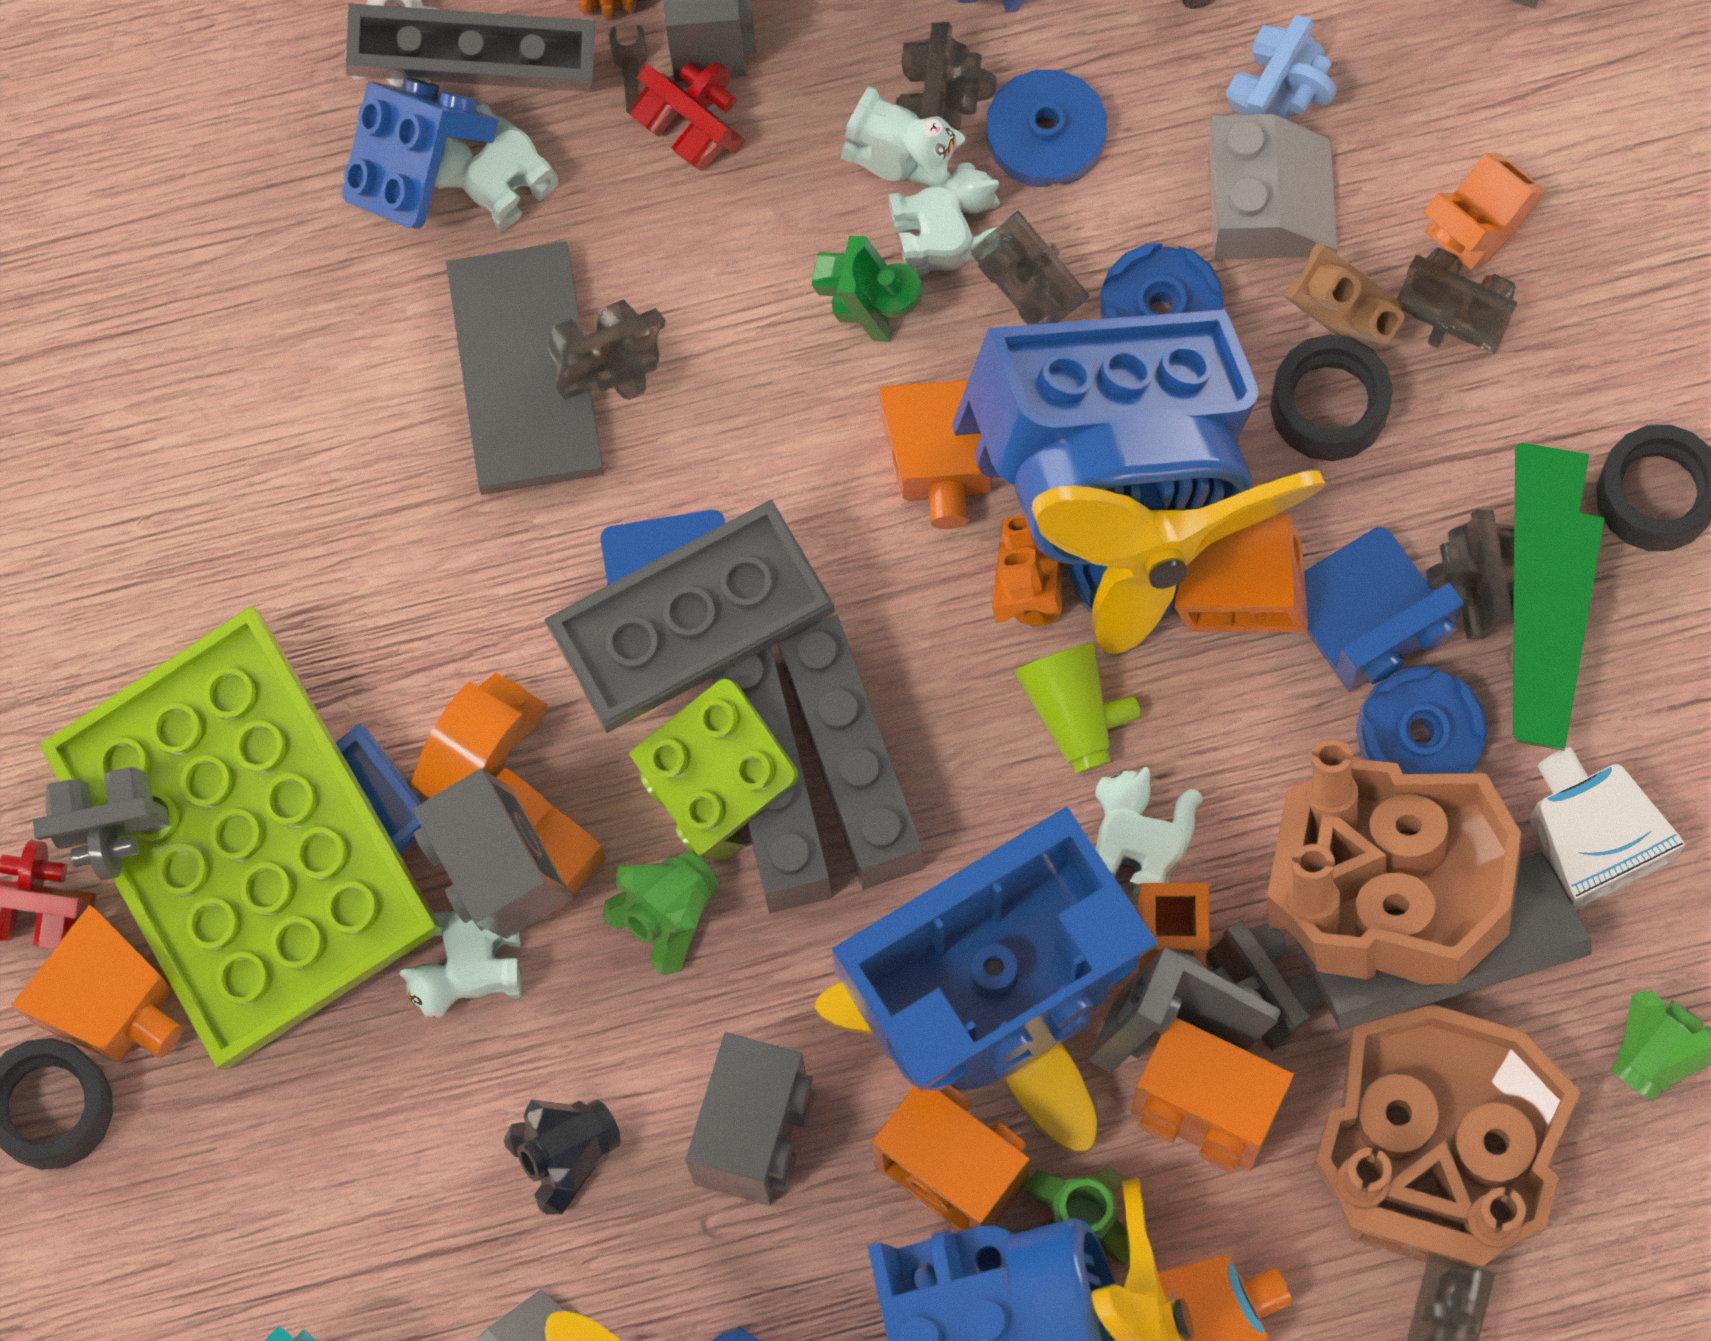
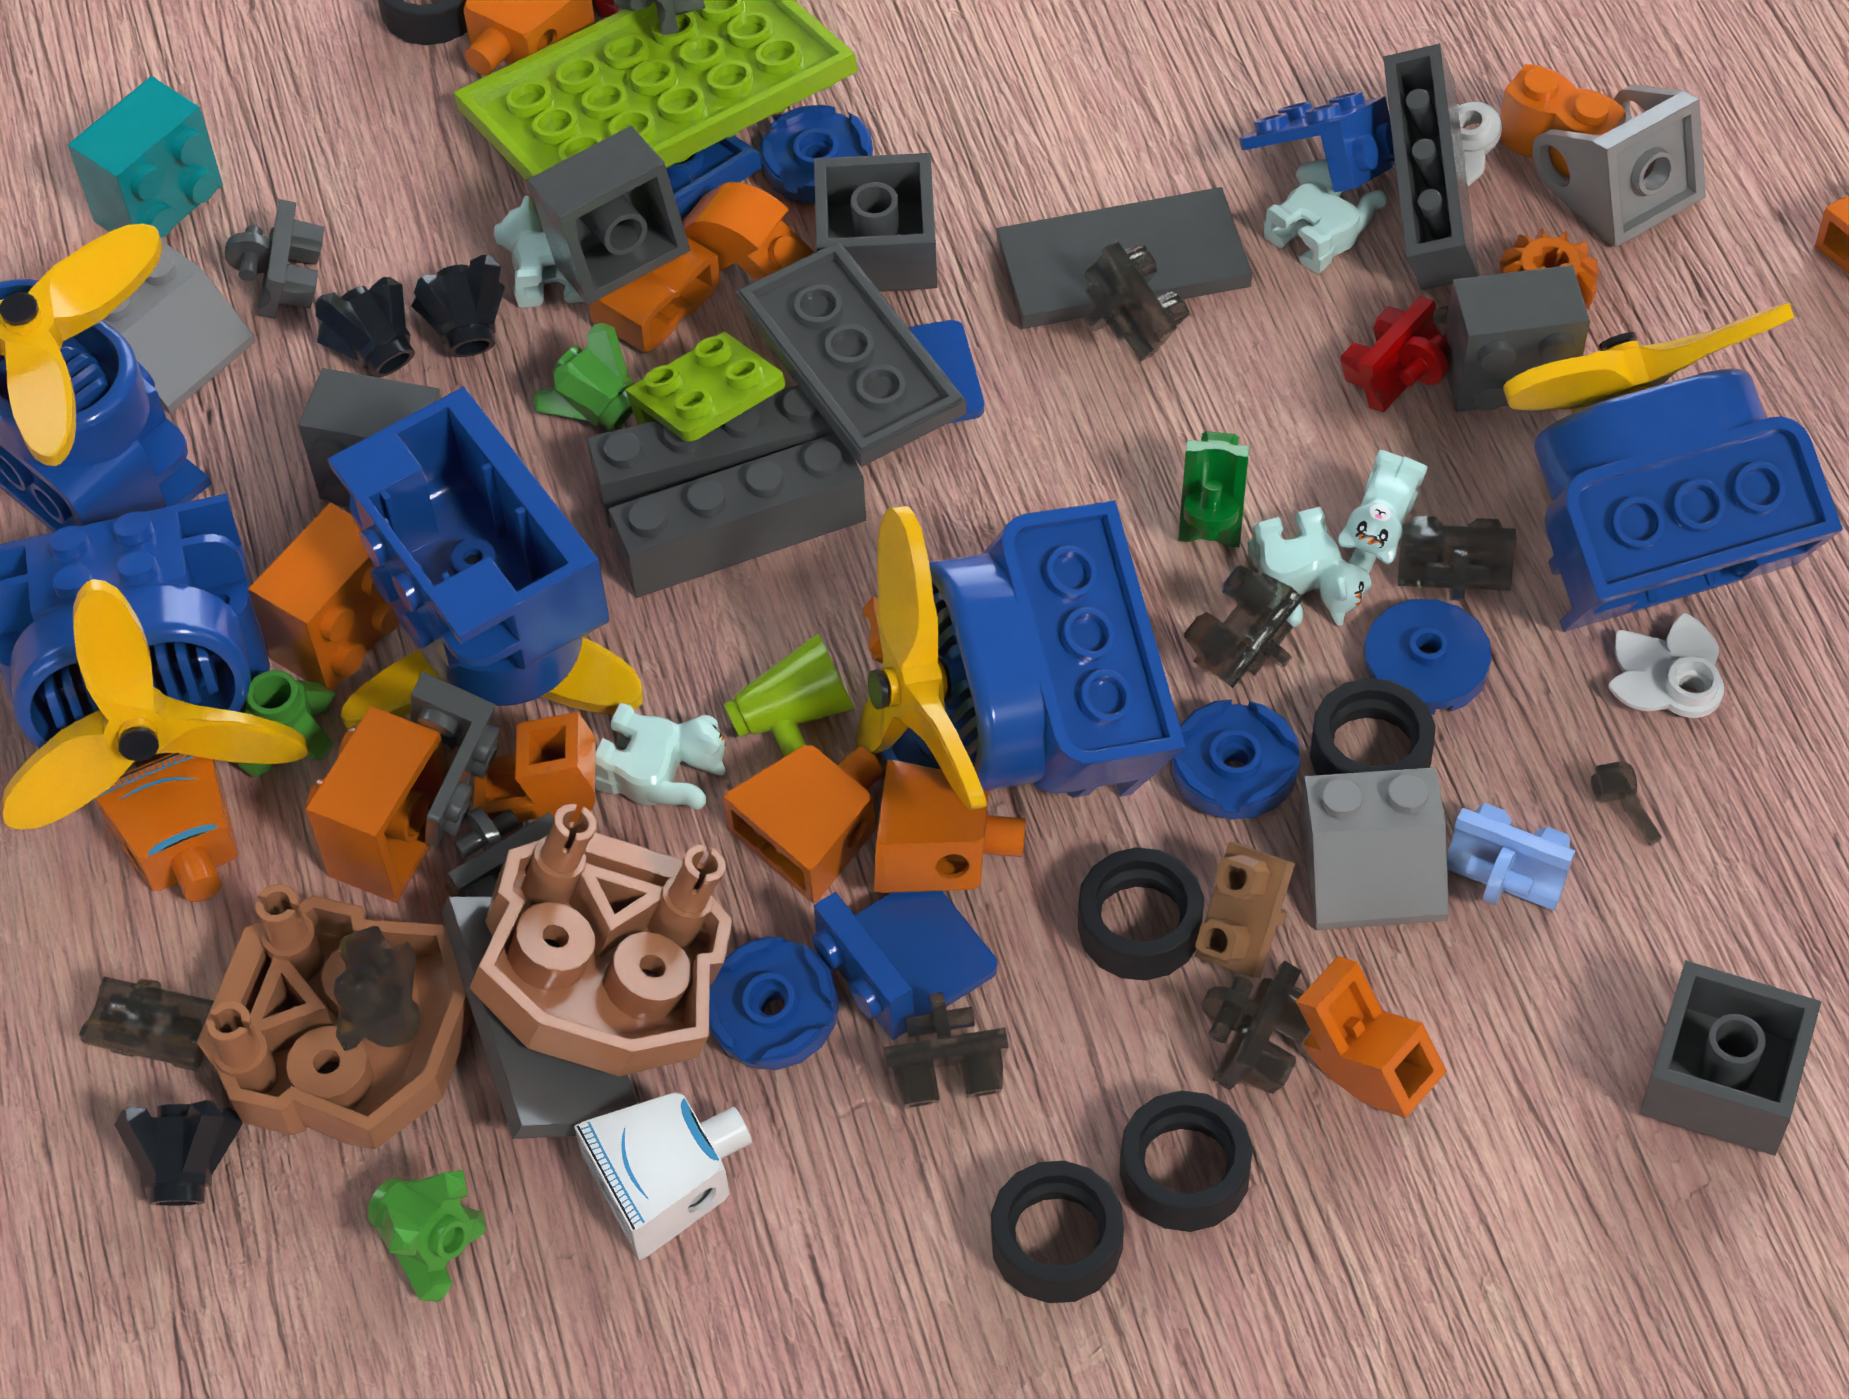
camera: 85 degrees right, 15 degrees down
(353, 639) = (801, 137): none -> blue plate
(447, 1263) = (288, 239): none -> dark grey hips
(477, 601) = (880, 215): none -> dark grey brick
(540, 1046) = (462, 304): none -> black rock
(1155, 139) = (1373, 700): none -> black tyre
(1216, 691) = (806, 815): none -> orange torso
(1461, 1074) = (375, 991): none -> clear smoke hips
(1552, 589) = (923, 1117): green wedge -> none
(1582, 1283) = (178, 1148): none -> black rock
(1599, 332) = (1188, 1112): none -> black tyre

